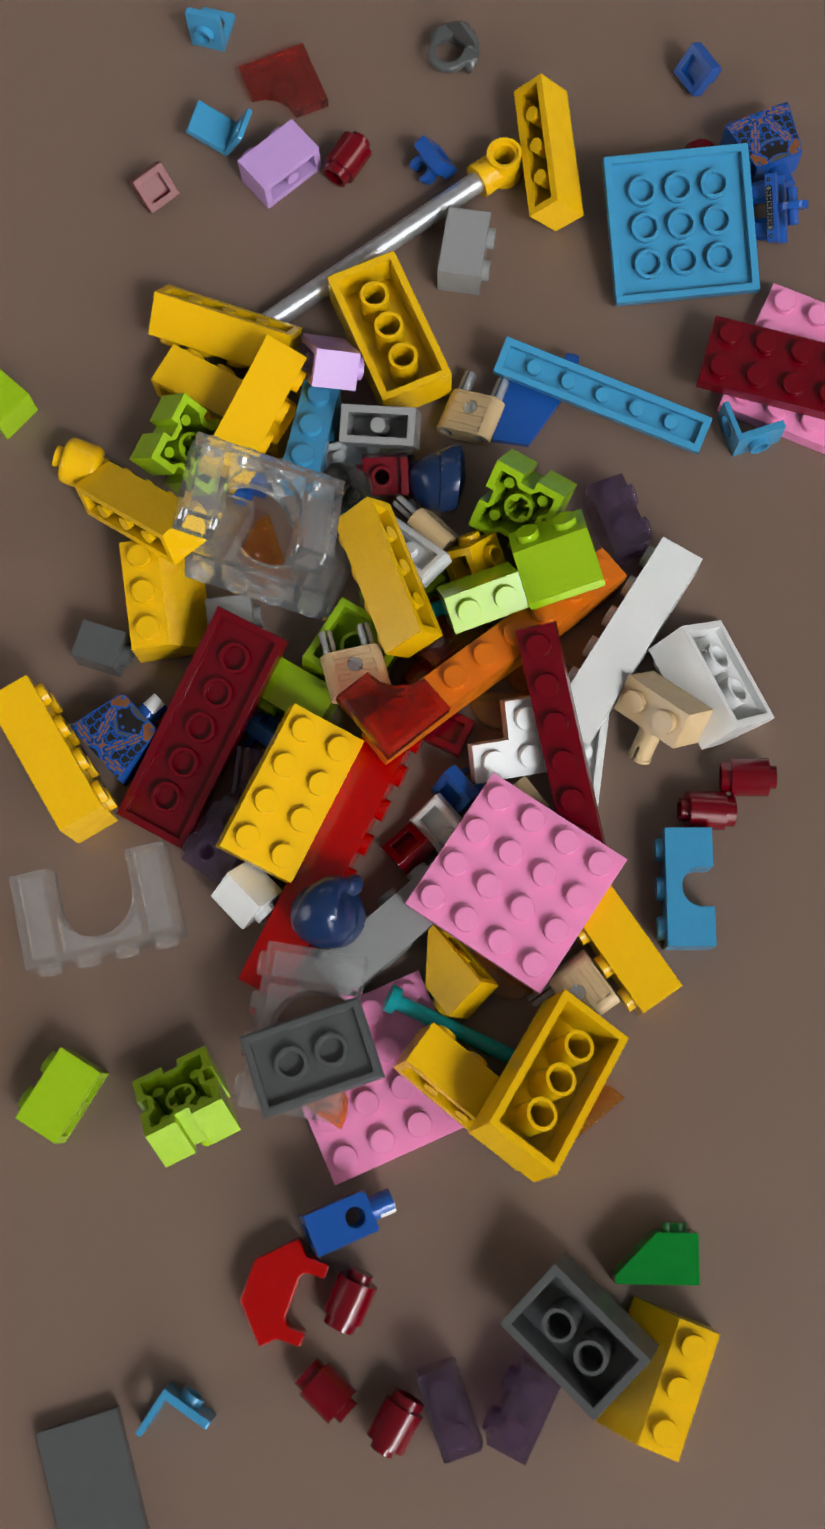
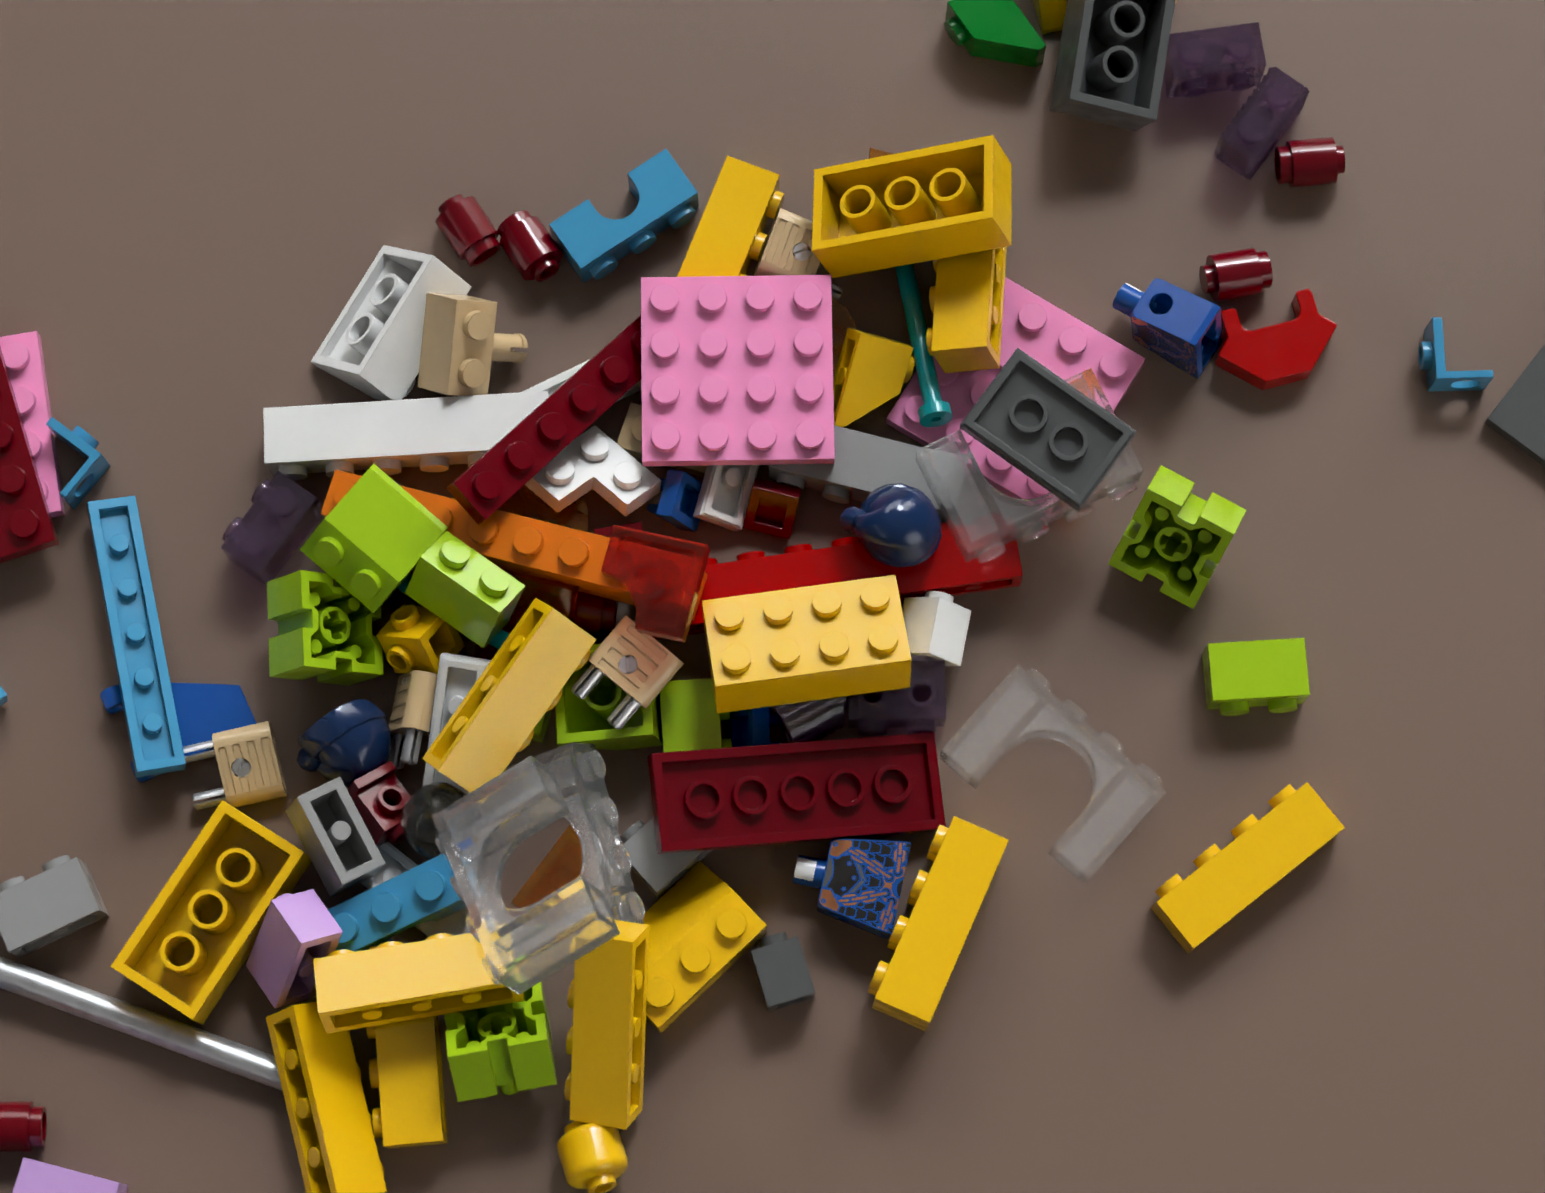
camera: 130 degrees left, 0 degrees up
(326, 1391) = (1329, 241): dark red brick -> none

